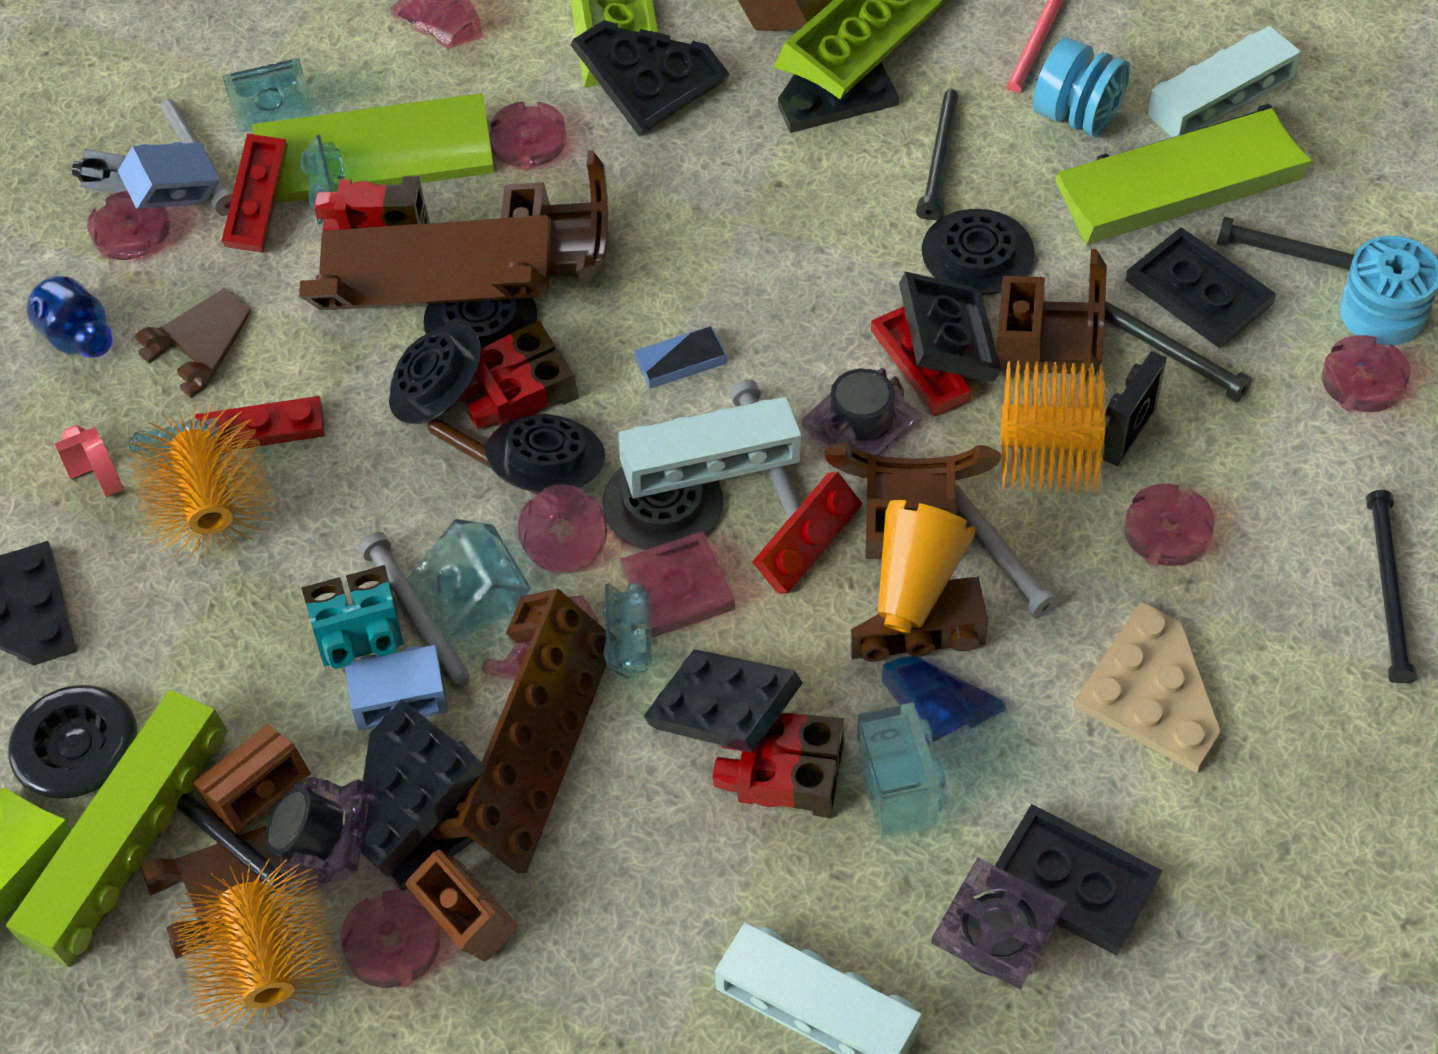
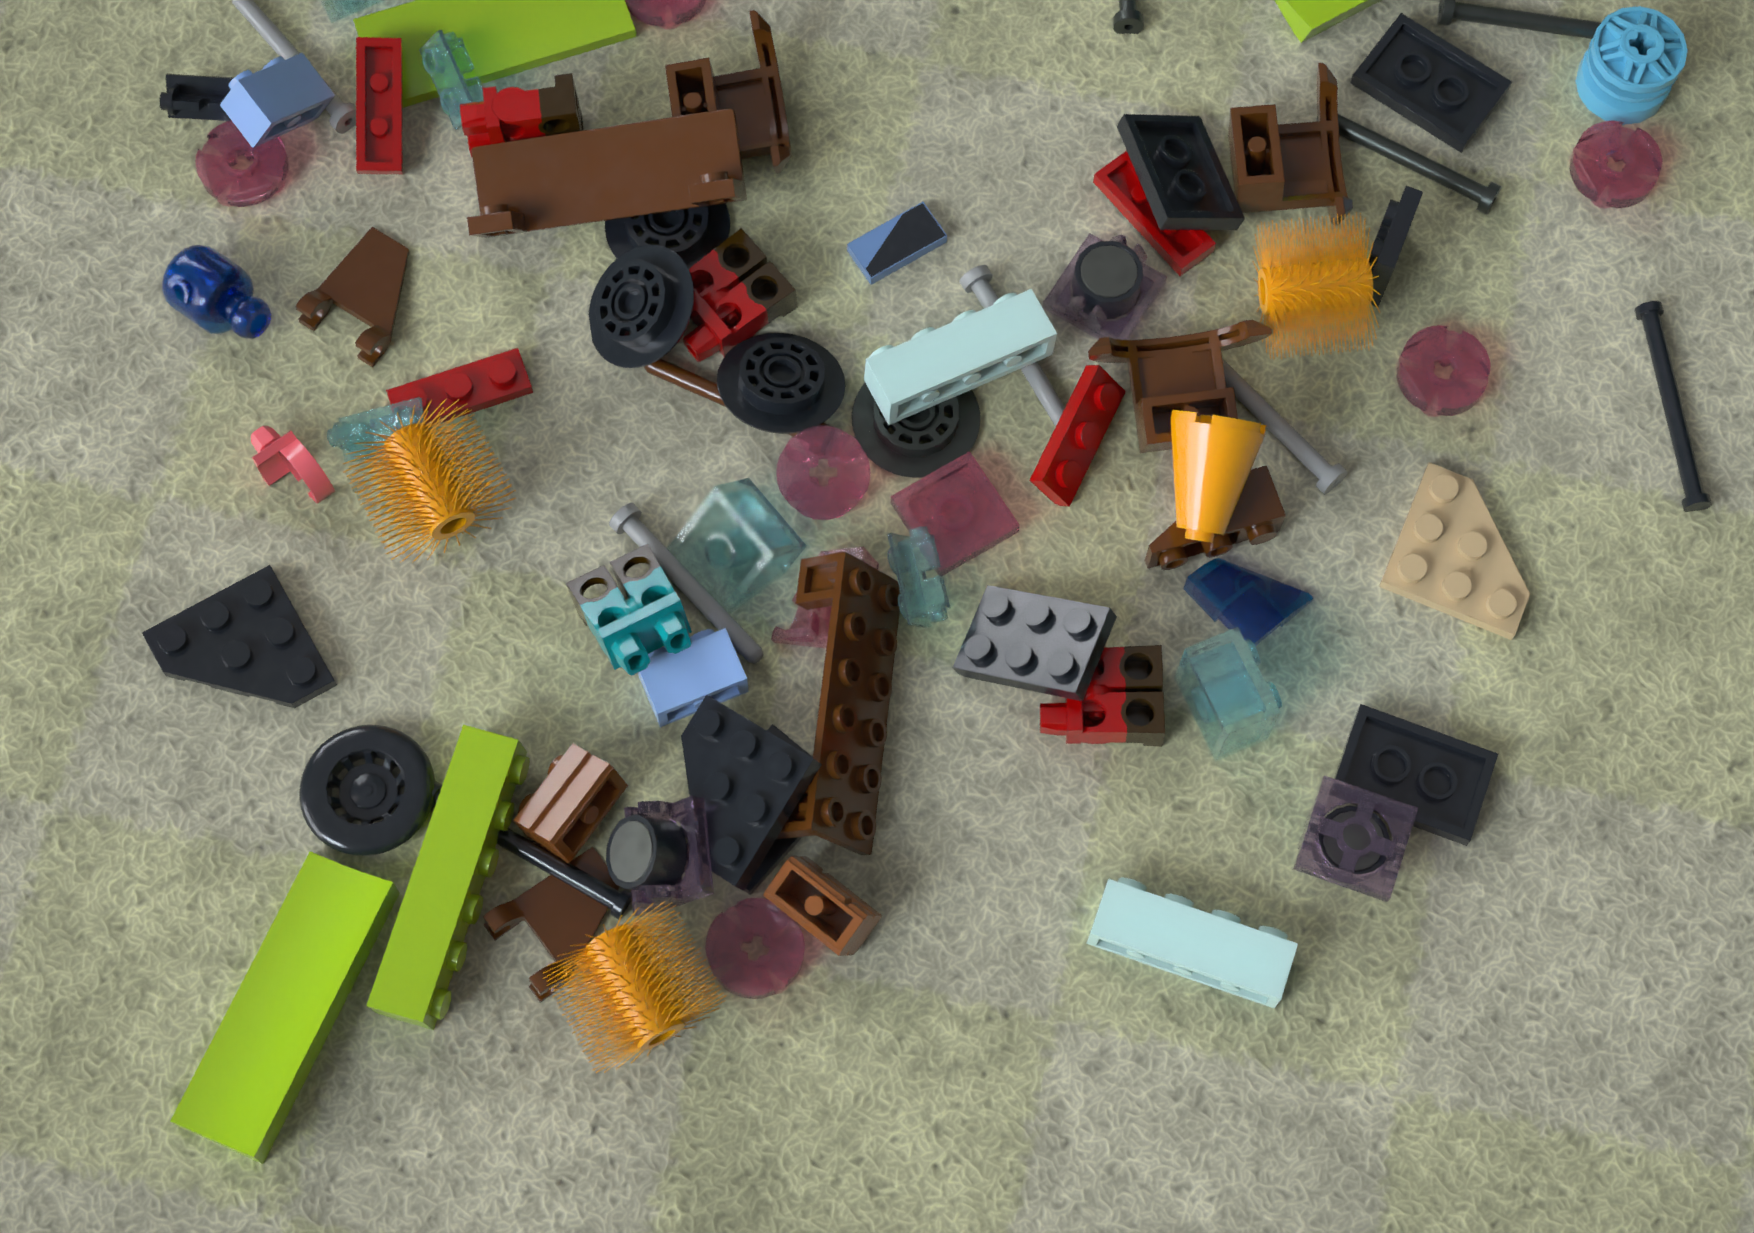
camera: 15 degrees left, 15 degrees up
(978, 241) = (1190, 52): black wheel -> none

